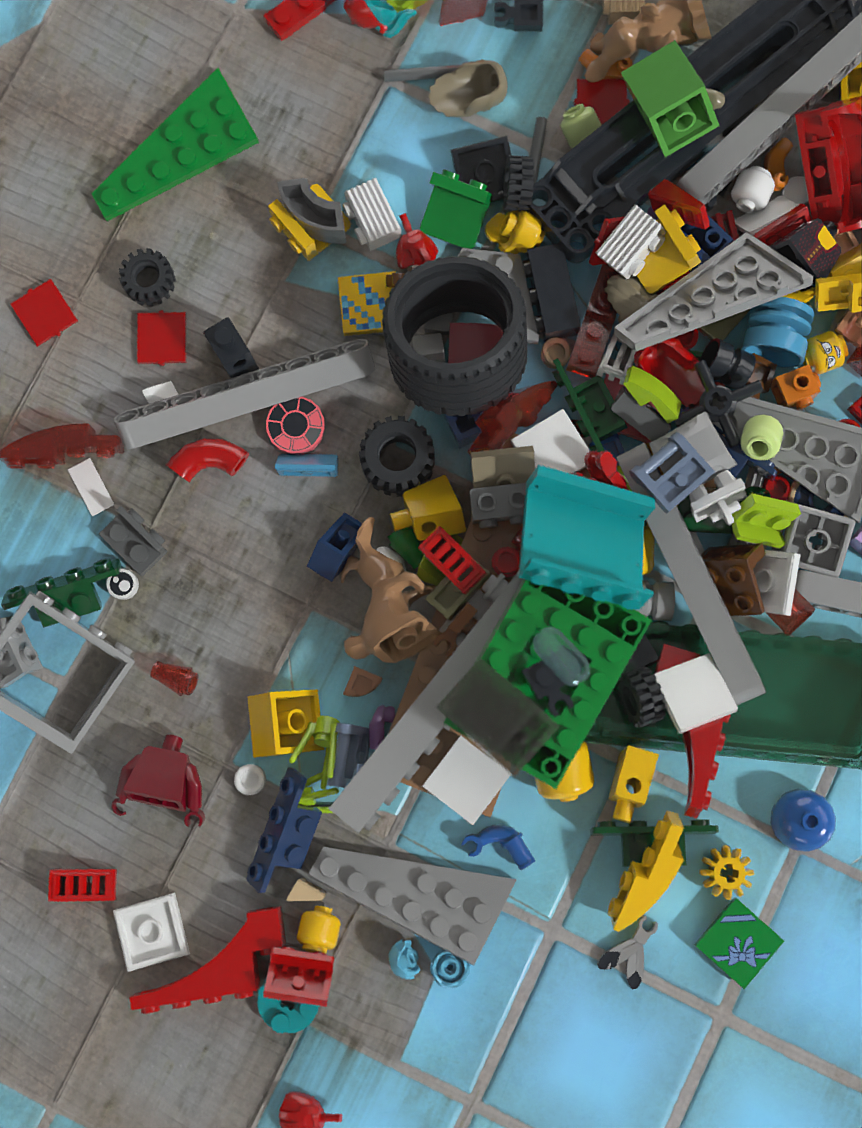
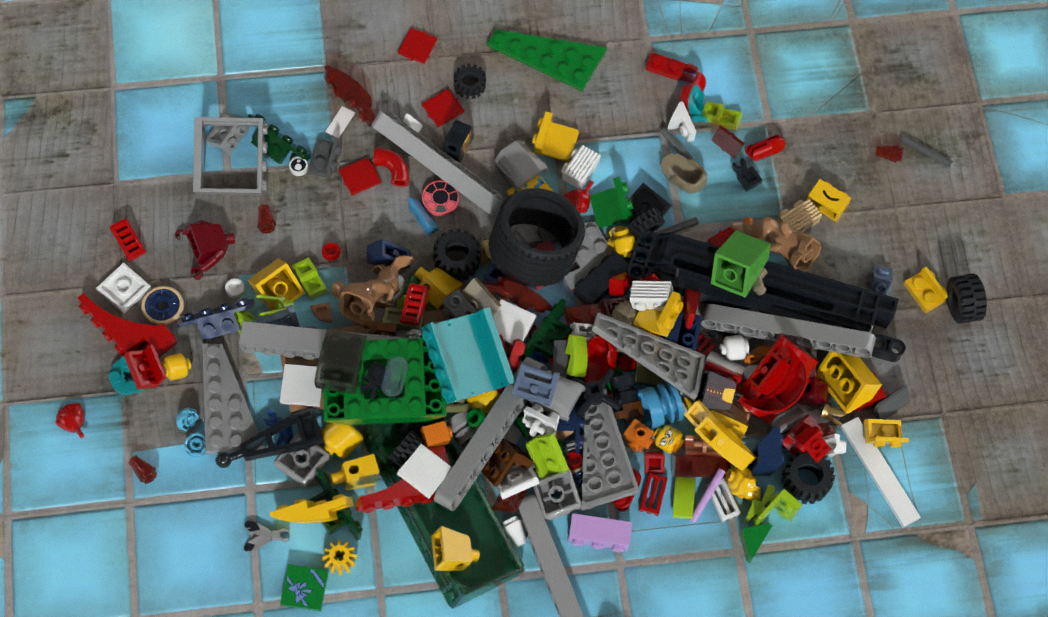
camera: 45 degrees right, 15 degrees down
(191, 511) = (359, 176): none -> red piece
(193, 897) = (167, 315): none -> dark blue wheel
(280, 618) = (331, 251): none -> red plate
(301, 670) = (309, 278): none -> lime slope
(306, 891) = (192, 348): tan slope -> none
(314, 214) = (557, 140): flat silver brick -> none
(317, 290) = (519, 163): none -> light grey slope
(391, 40) = (683, 121): none -> white slope
(411, 410) = (484, 252): none -> pearl gold piece
(440, 1061) = (143, 470): none -> clear red cone
(533, 809) = (308, 429): none -> black plate
(554, 349) = (572, 300): tan tile -> none
(578, 276) = (618, 285): none -> red slope
(579, 124) = (706, 235): yellowish green head -> none
(579, 849) = (305, 471): none -> light grey brick
(651, 648) = (436, 434): none -> orange brick
(658, 576) = (476, 417): none -> green cone
(761, 437) = (590, 424): yellowish green head -> none
(803, 820) = (395, 584): blue cylinder -> none
(815, 723) = (452, 550): none -> yellow torso
(827, 624) = (515, 531): none -> white cone
(837, 390) = (654, 462): none -> red slope

